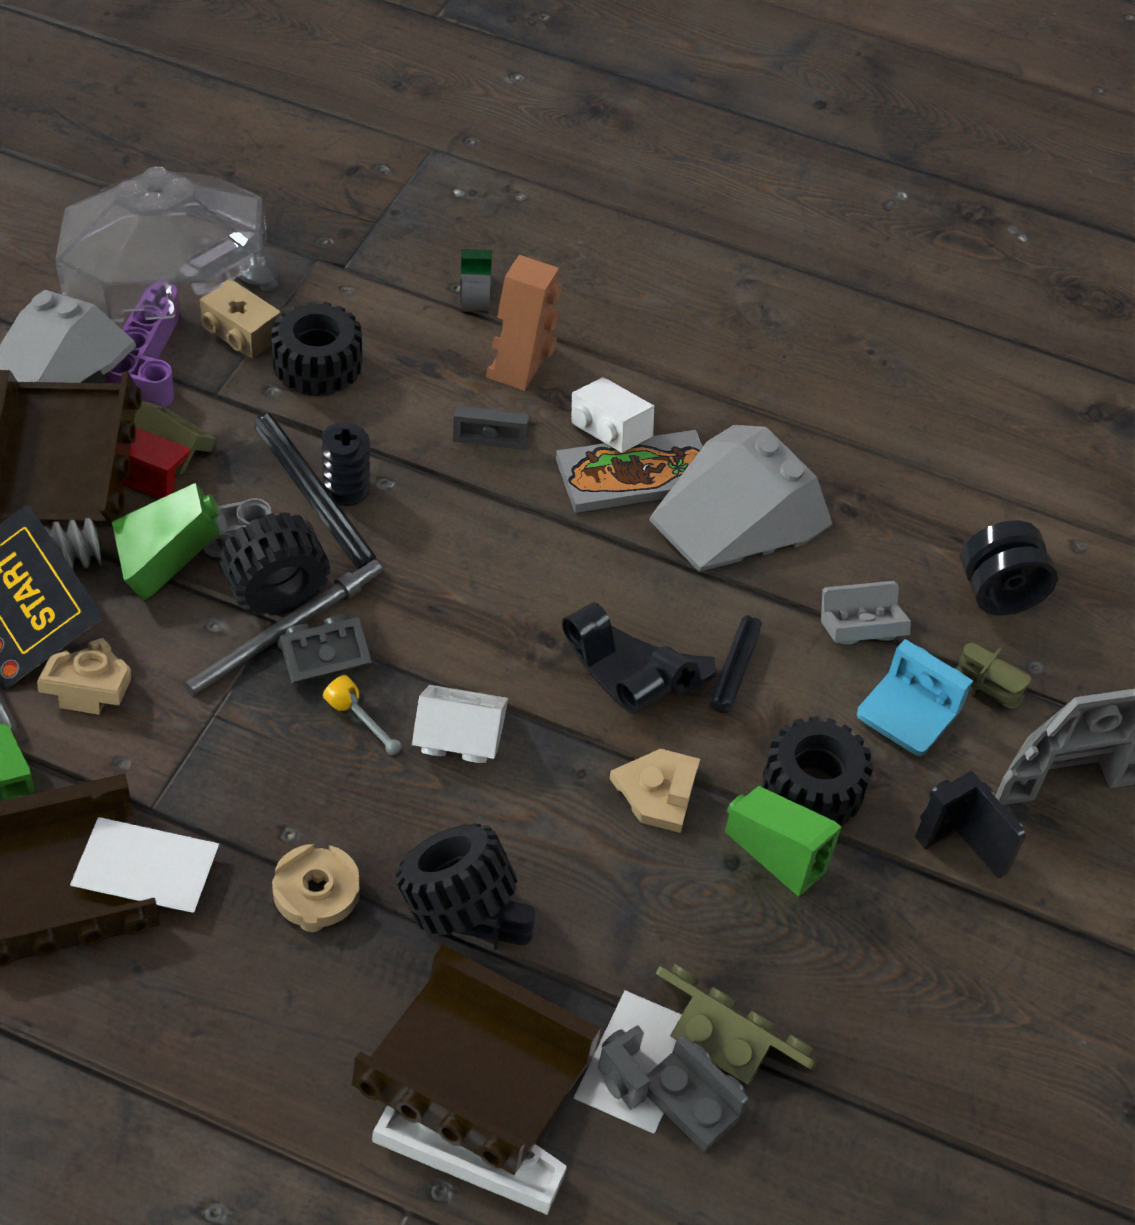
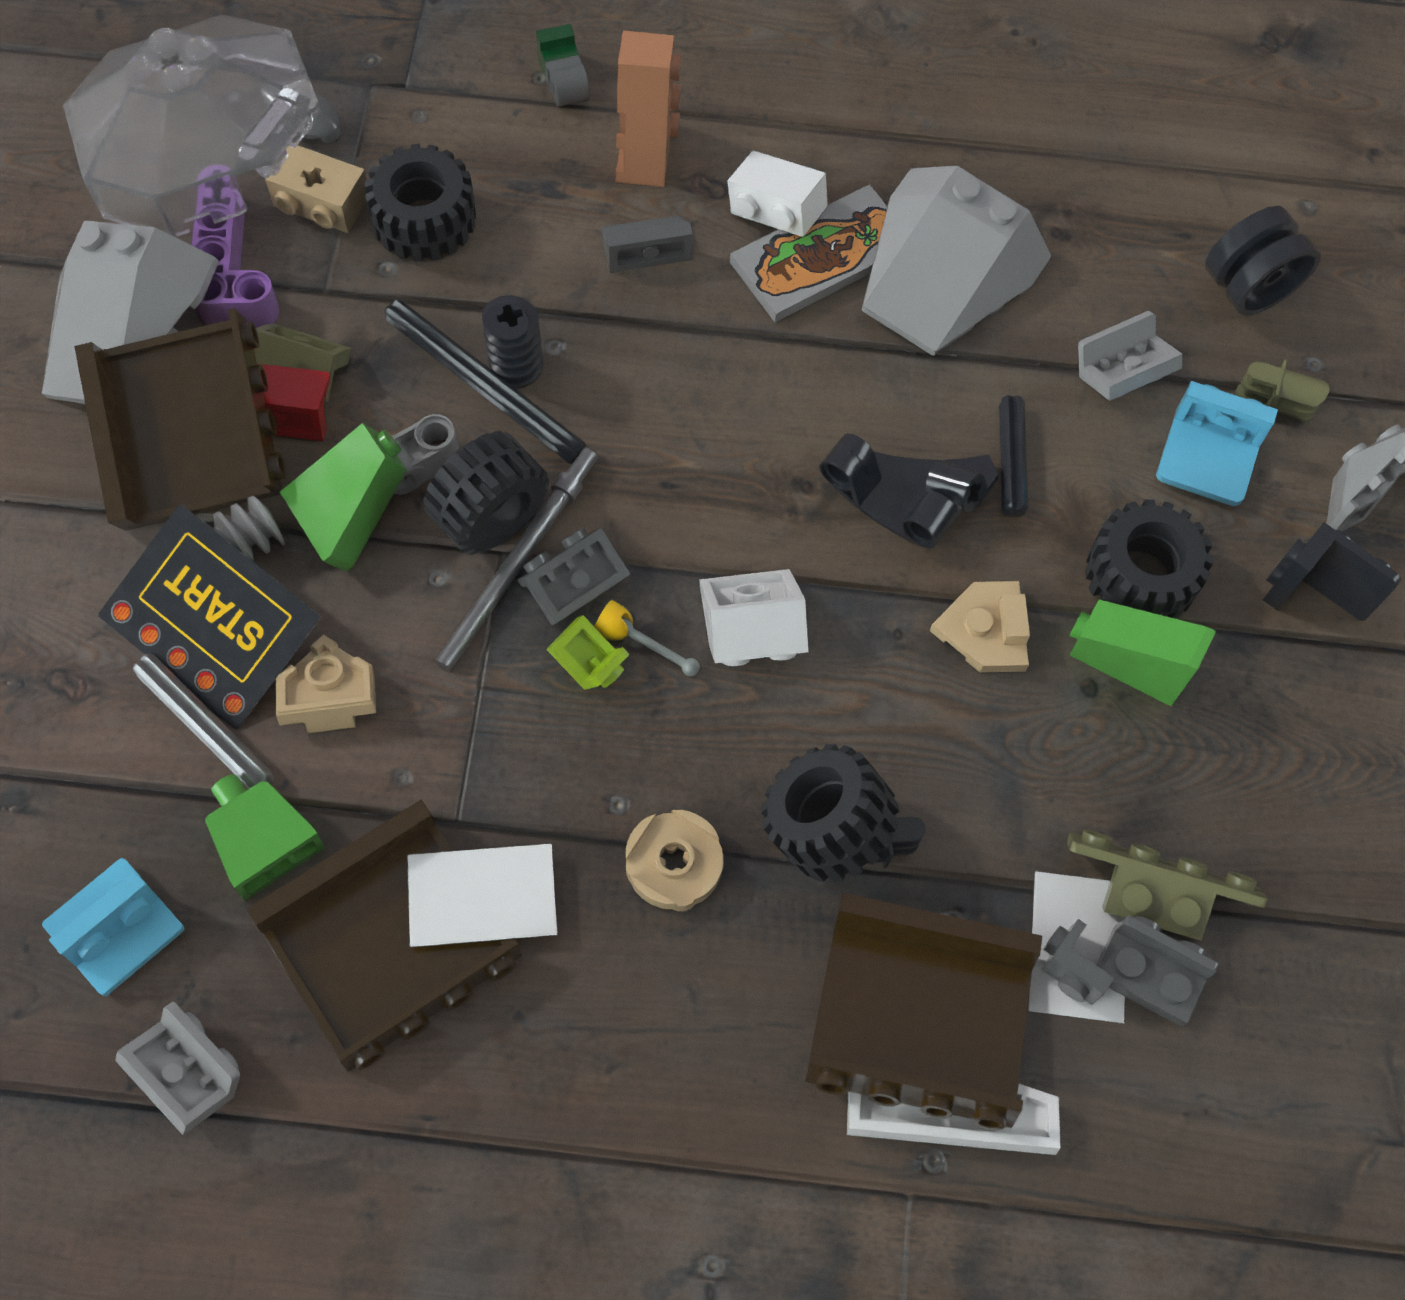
camera: 15 degrees left, 15 degrees up
(309, 711) = (588, 655): none -> lime bracket

